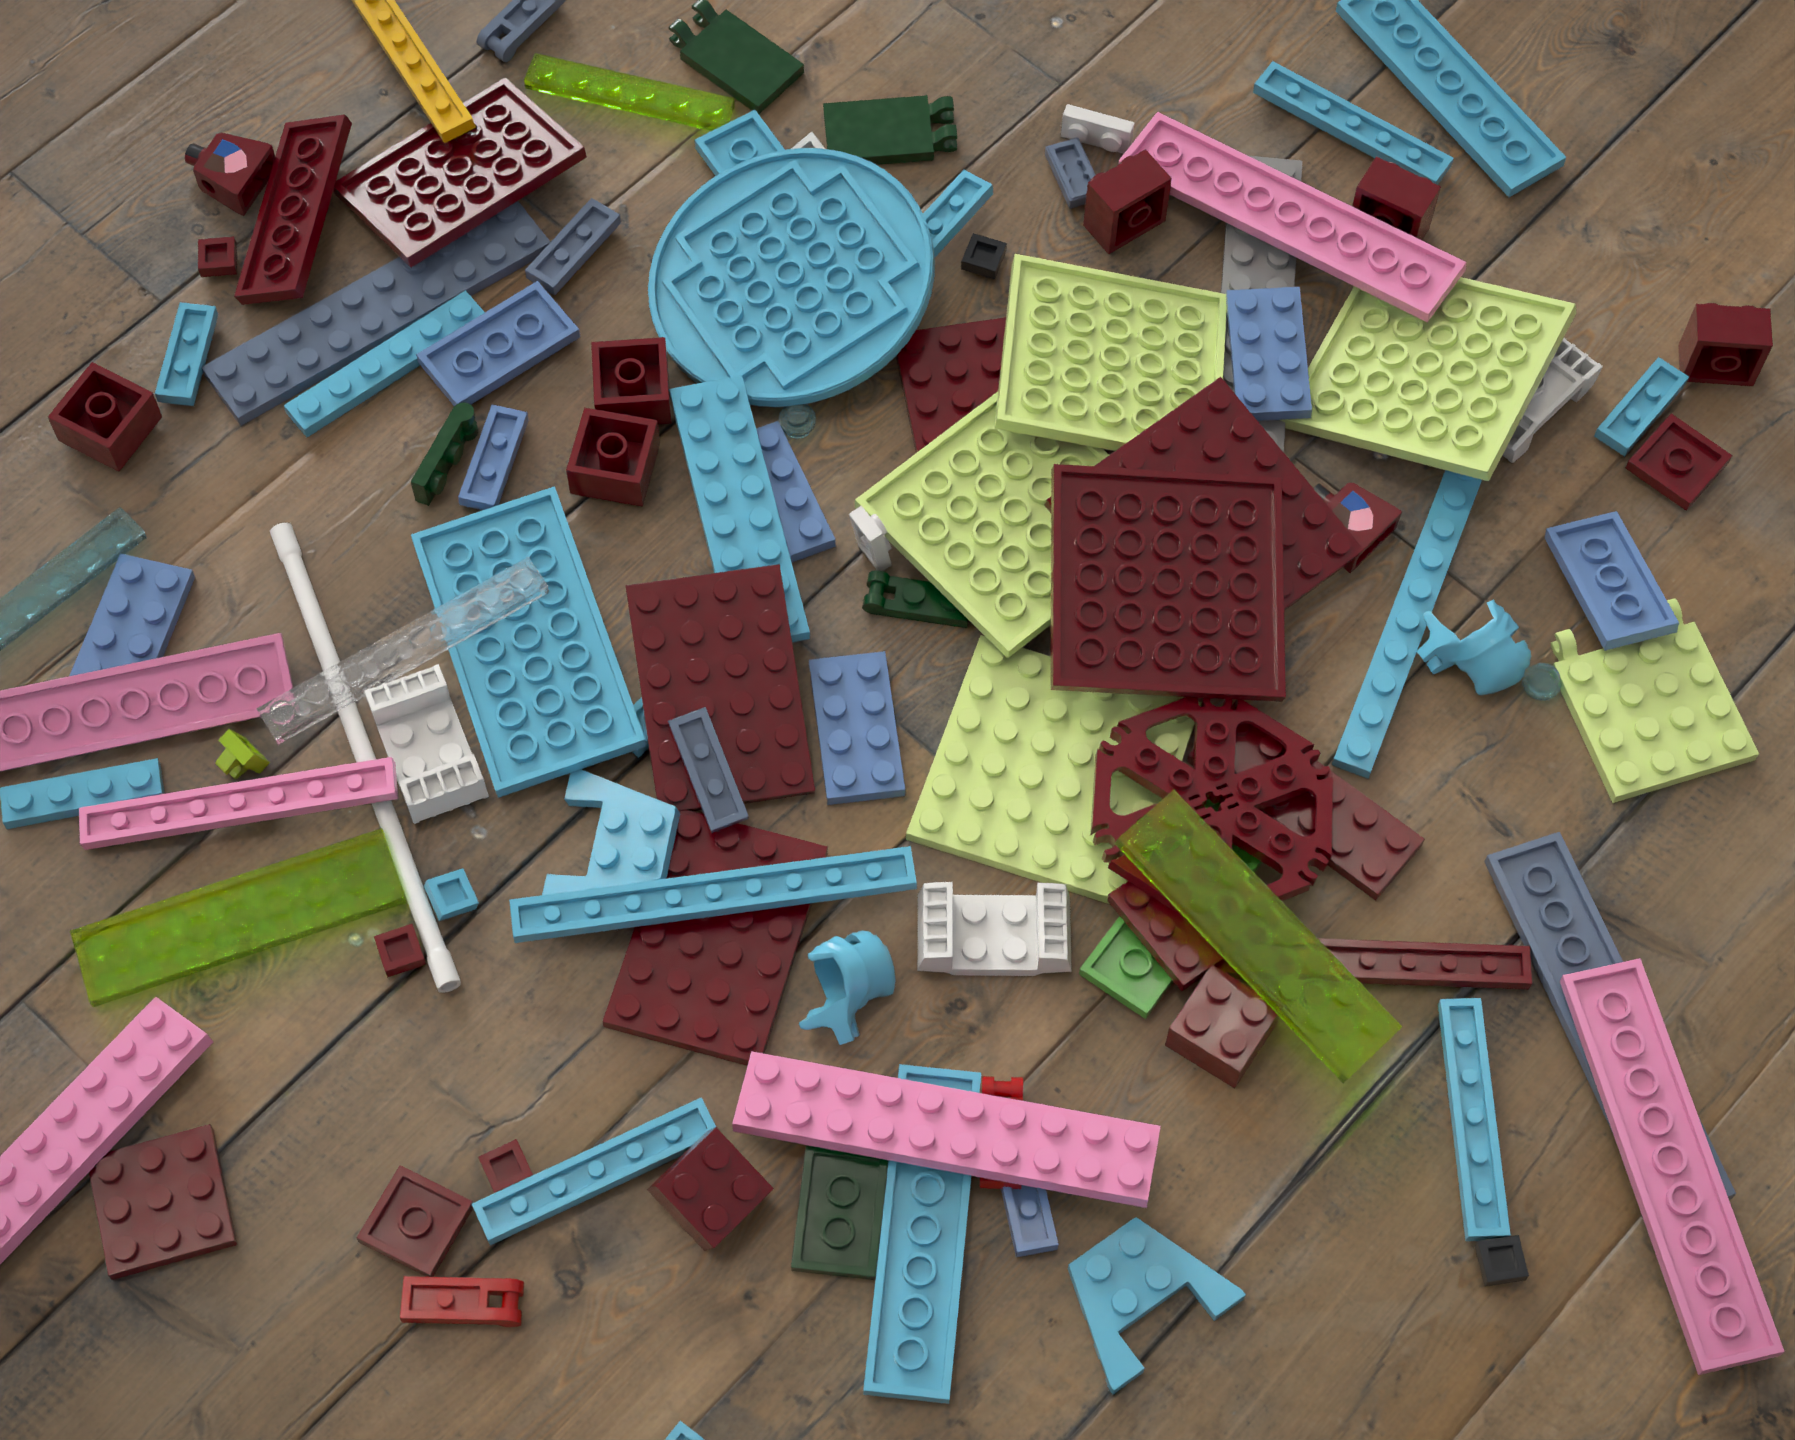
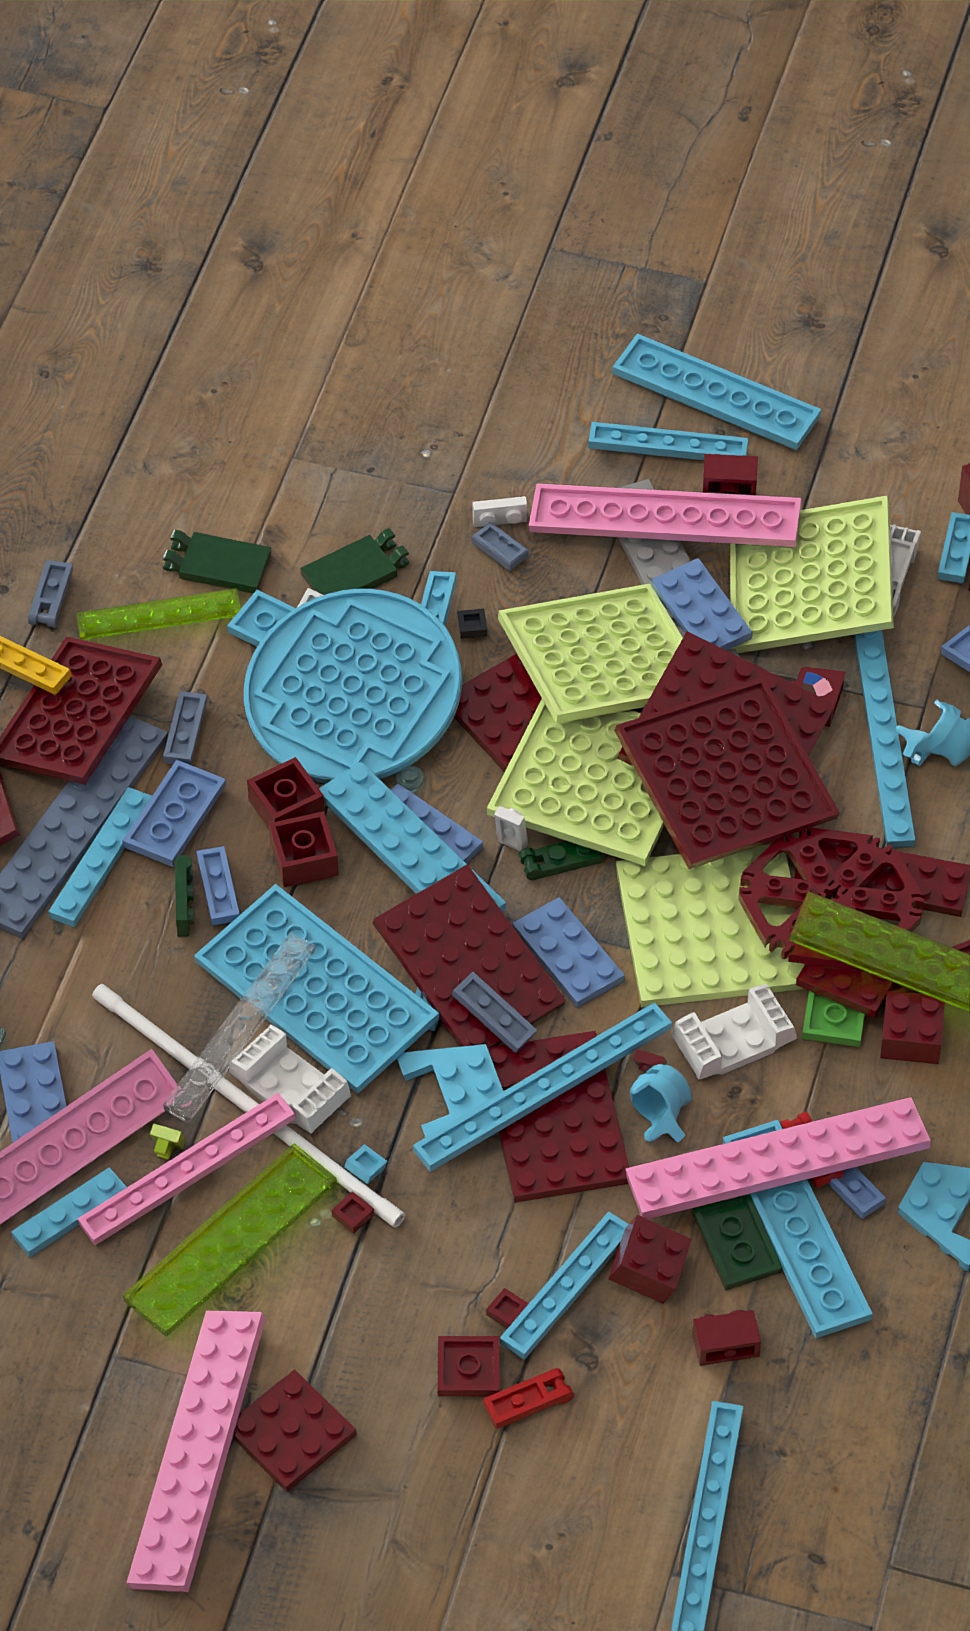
camera: 25 degrees left, 10 degrees down
(749, 1339) = (726, 1337): none -> dark red brick
(868, 918) = (647, 1060): none -> dark red plate
(1126, 201) = (550, 549): dark red brick -> none

